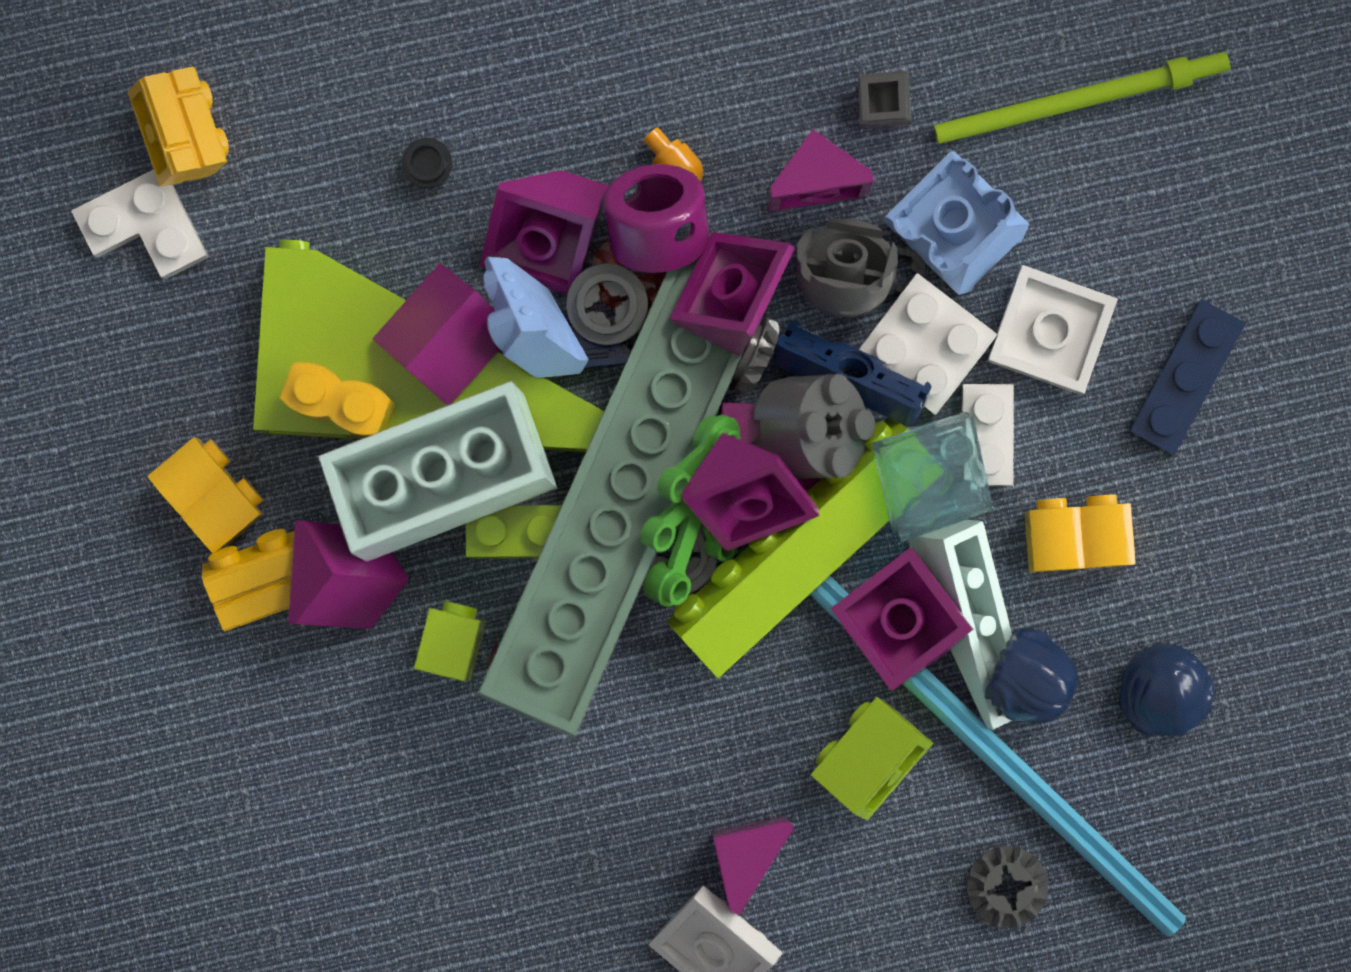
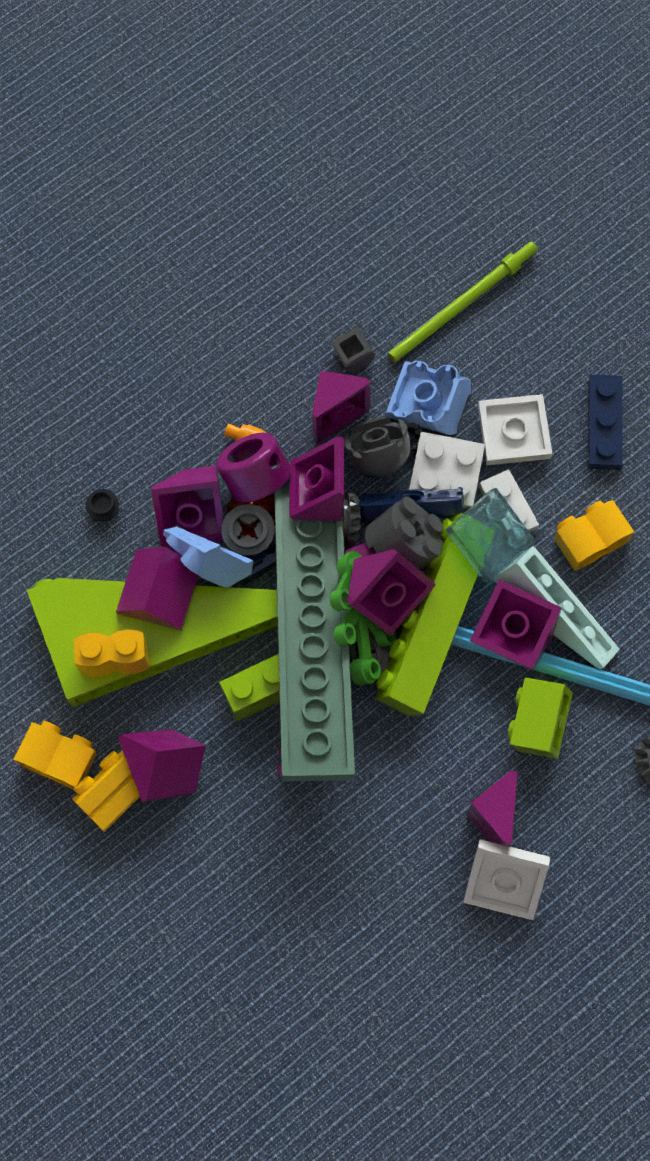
camera: 20 degrees left, 15 degrees down
(437, 472) = (193, 664): light aqua brick -> none
(450, 642) = (249, 769): lime brick -> none
(1032, 678) = (611, 625): dark blue hair -> none

